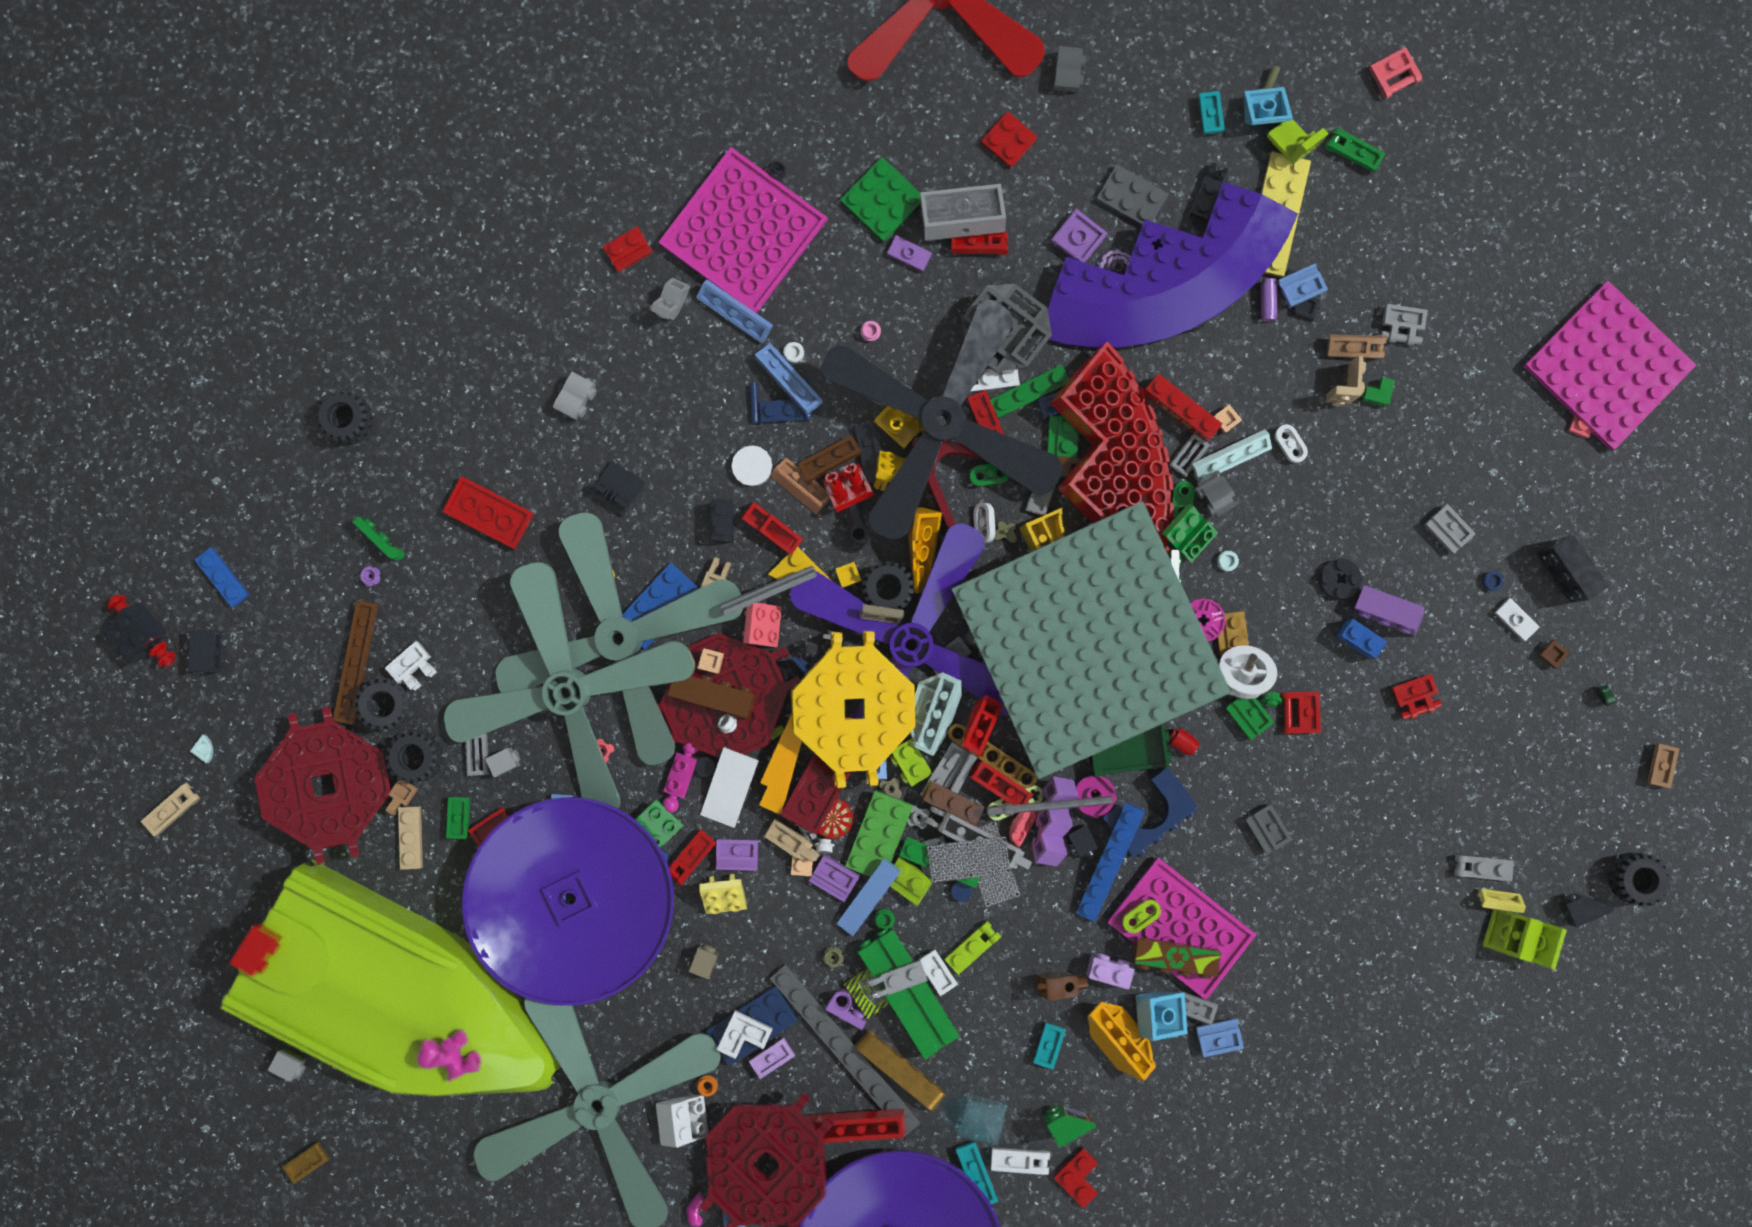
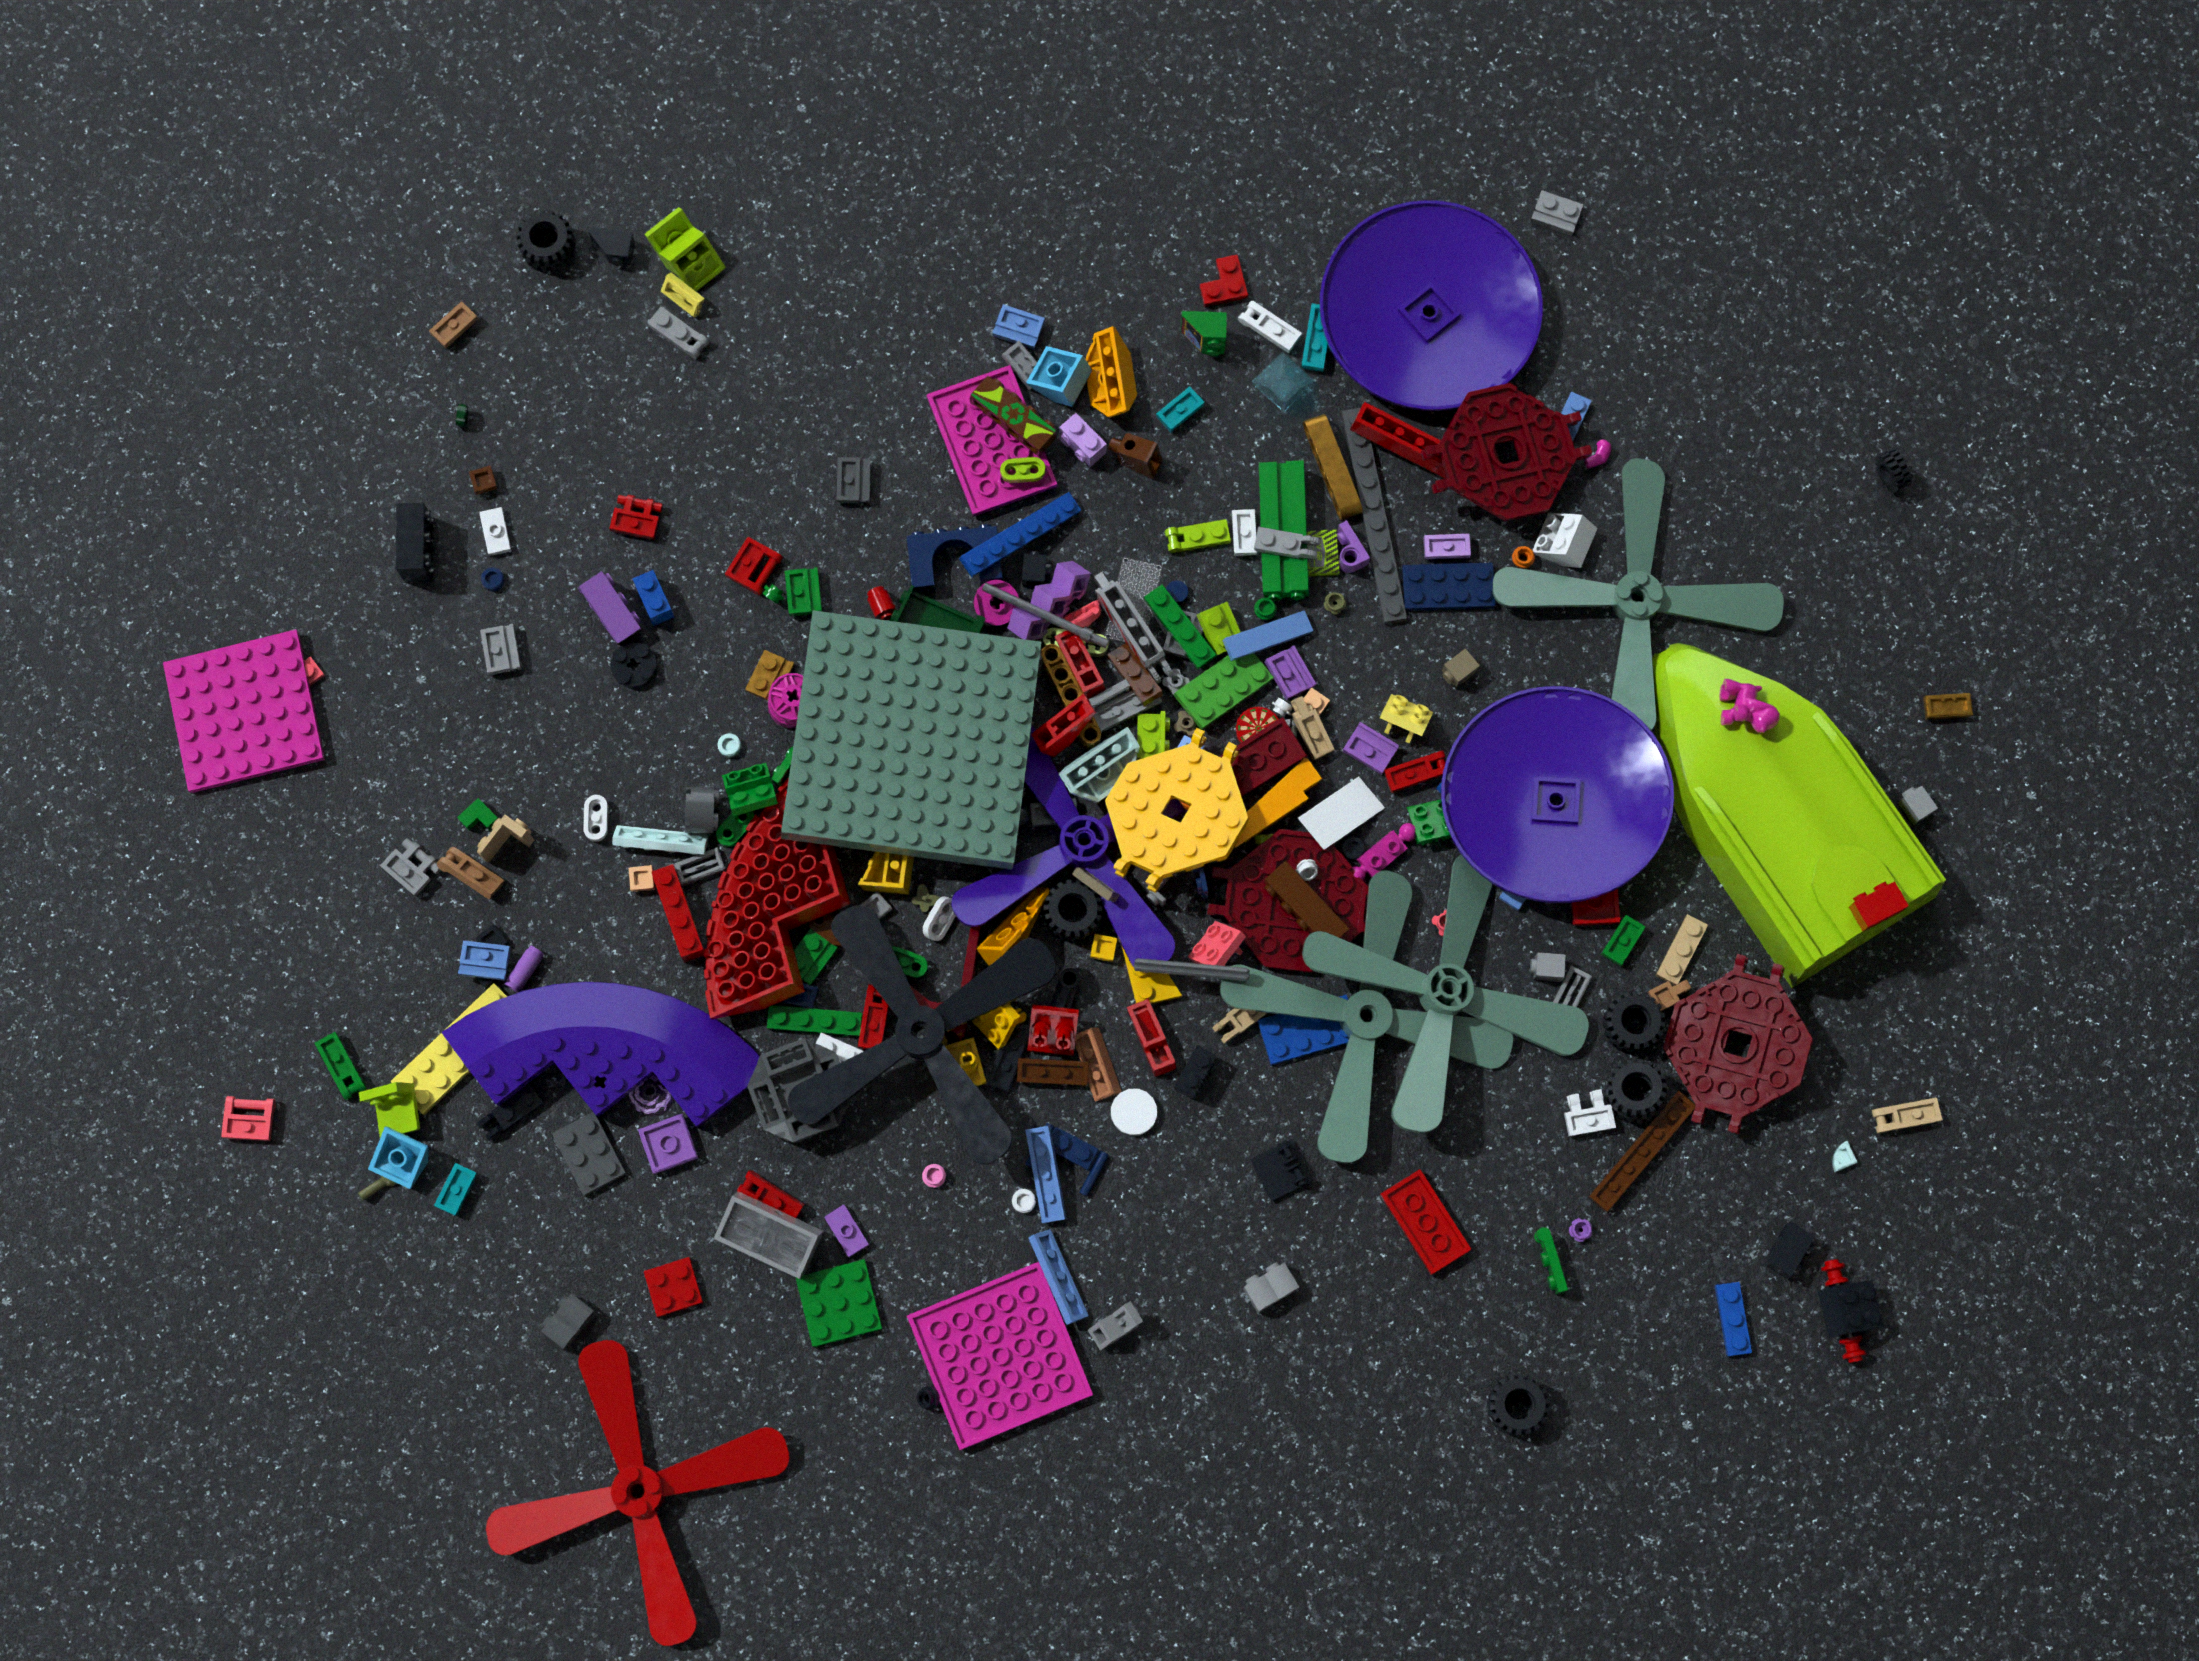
camera: 155 degrees left, 10 degrees down
(627, 249) = (1128, 1409): red plate -> none
(711, 661) = (1287, 940): light nougat plate -> none
(740, 1029) = (1458, 585): white plate -> none
(968, 859) = (1152, 611): flat silver sticker -> none
(1248, 671) = (780, 628): white piece -> none

